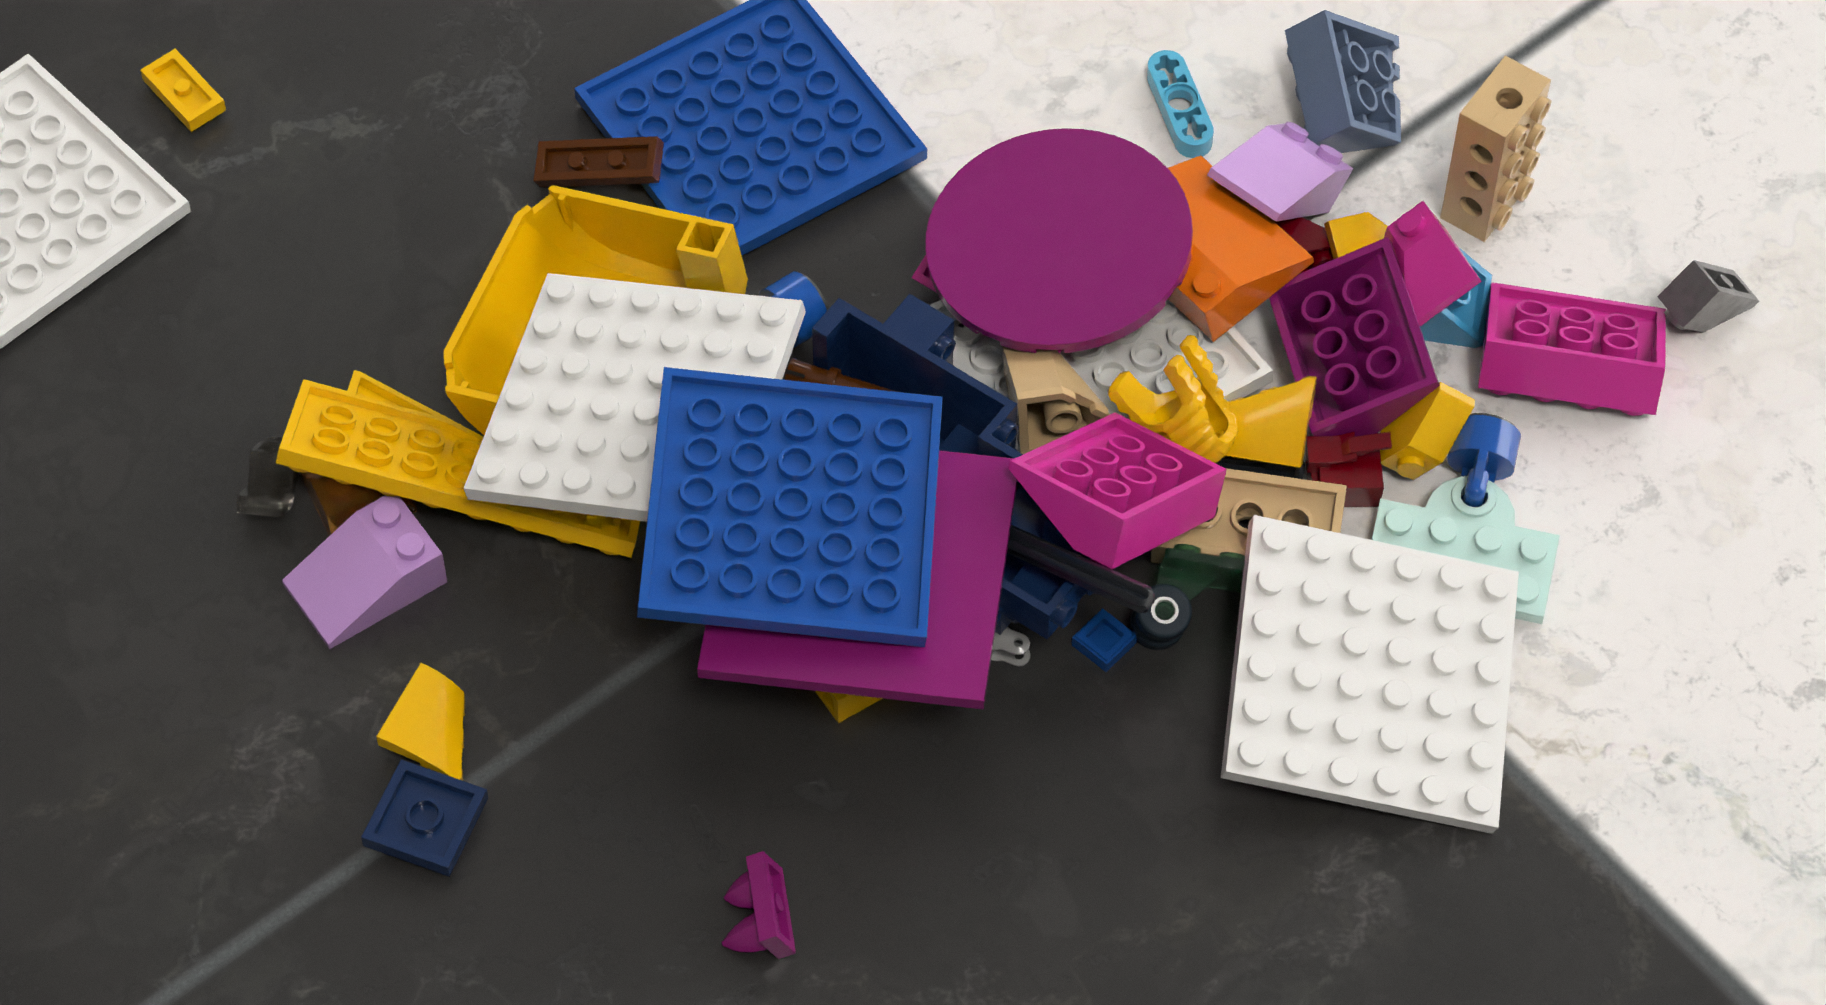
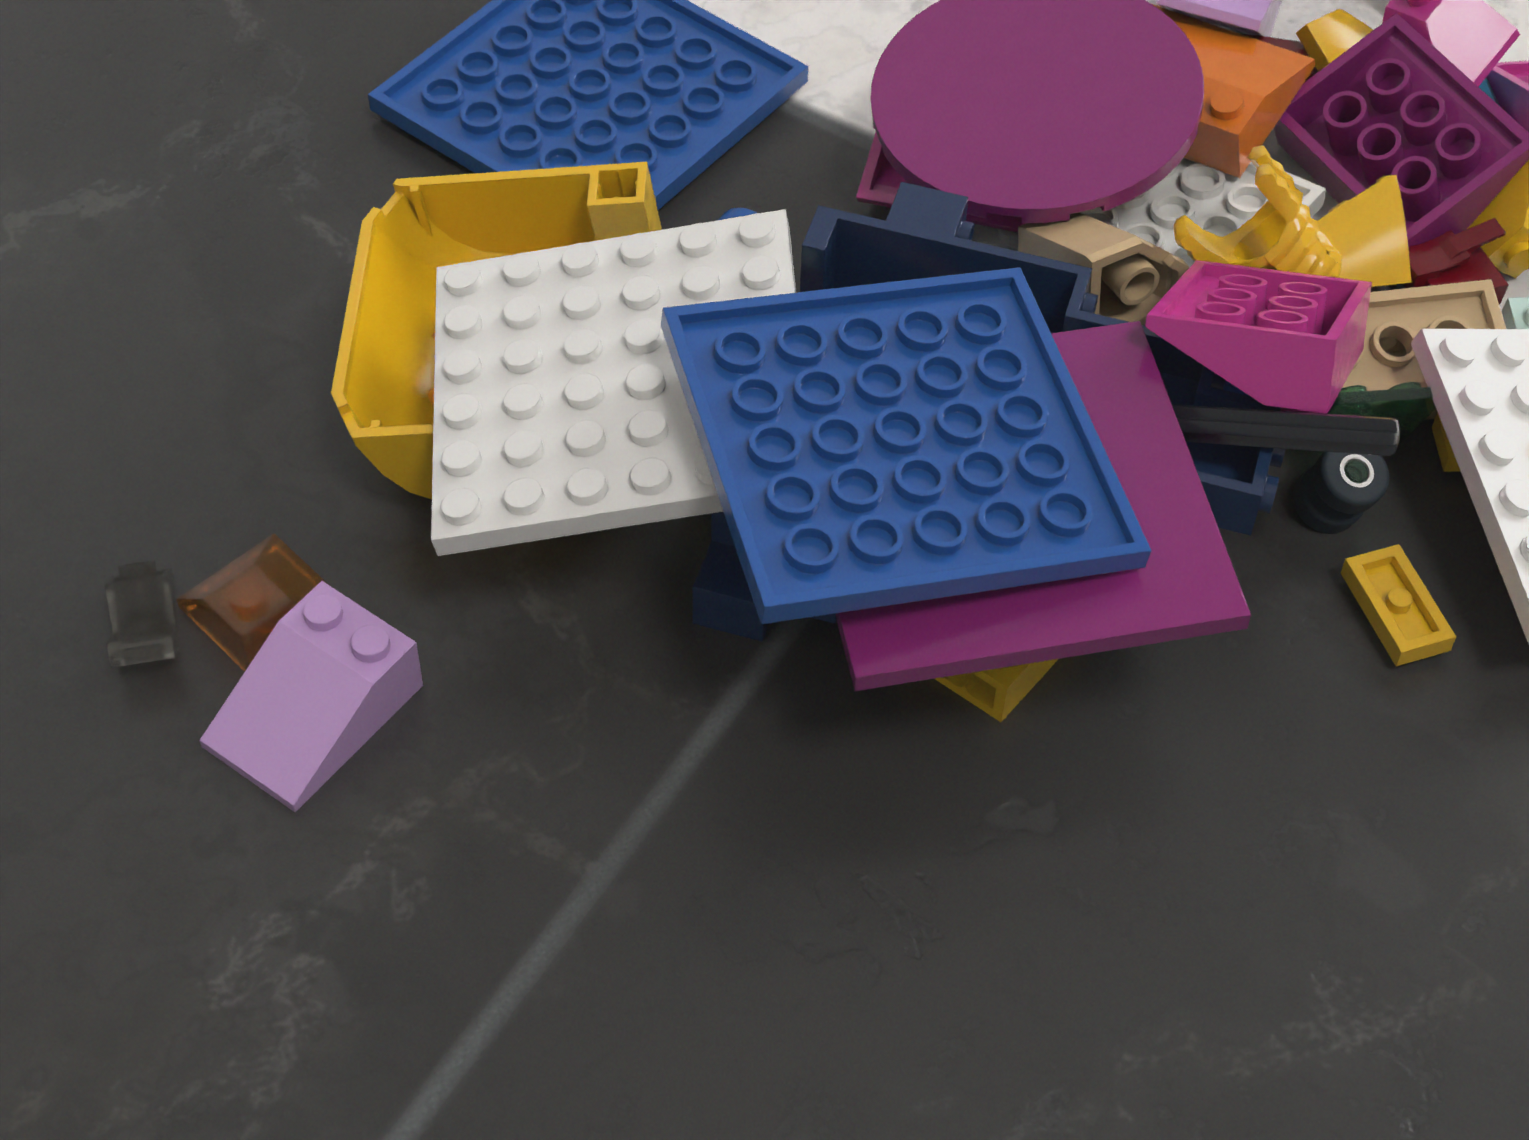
camera: 20 degrees left, 5 degrees down
(412, 452) = (317, 532): yellow wing -> none
(425, 817) = (515, 997): dark blue plate -> none
(428, 723) = (474, 872): yellow slope -> none
(599, 161) = (458, 148): reddish brown plate -> none
(770, 924) = (1039, 1010): magenta tile -> none
(1104, 640) = (1277, 538): blue tile -> none
(1162, 718) = (1398, 605): none -> yellow plate

